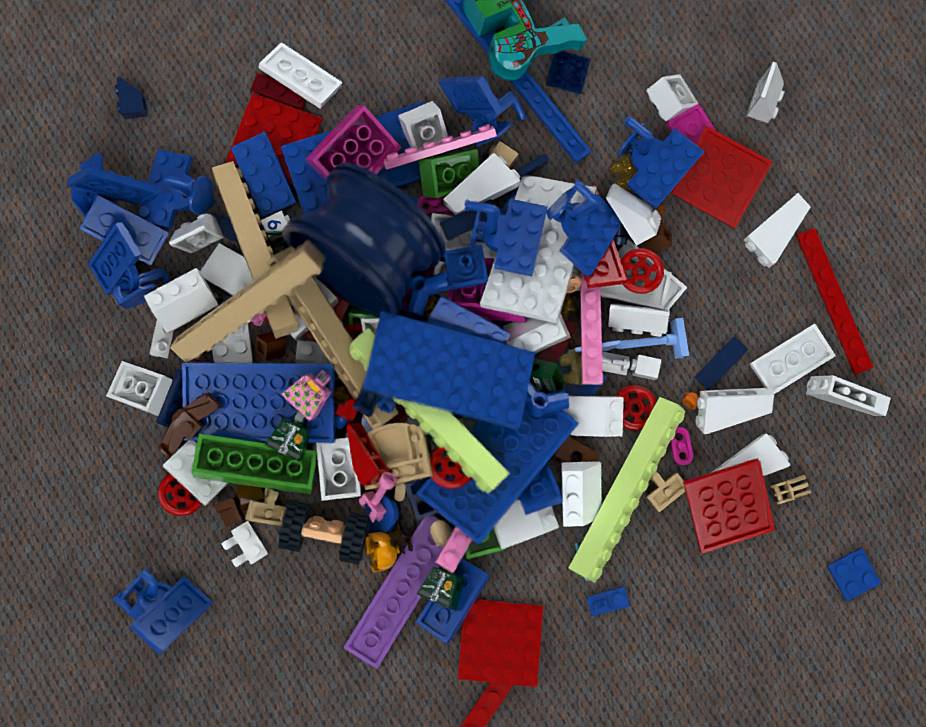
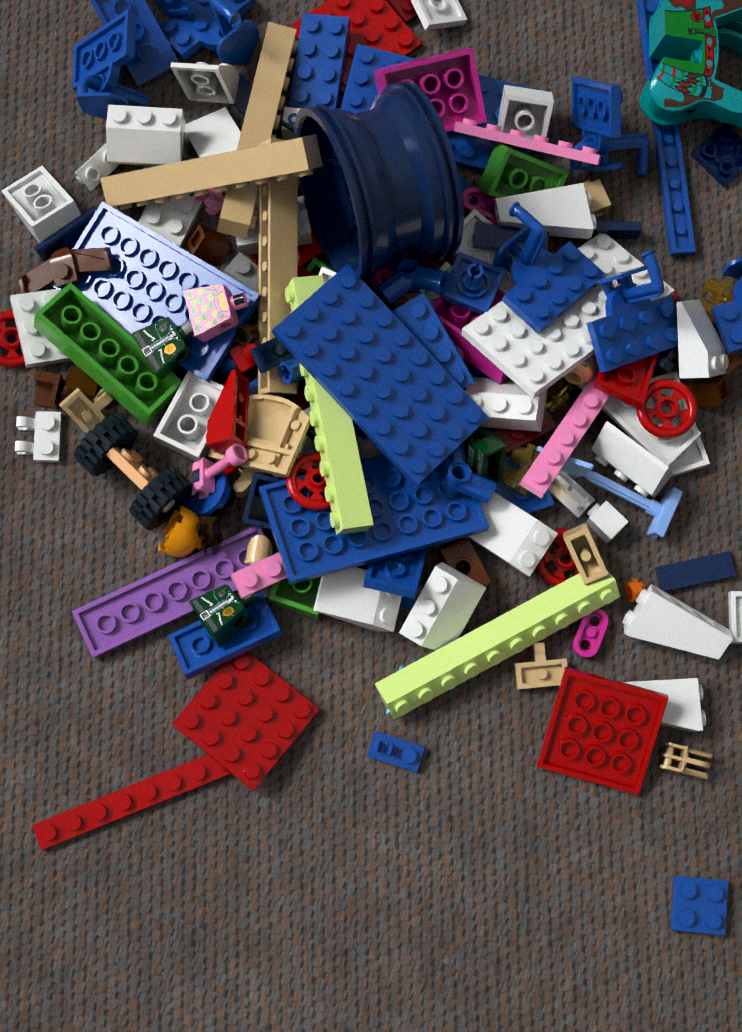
camera: 35 degrees right, 5 degrees down
(647, 398) = (585, 553): none -> tan slope

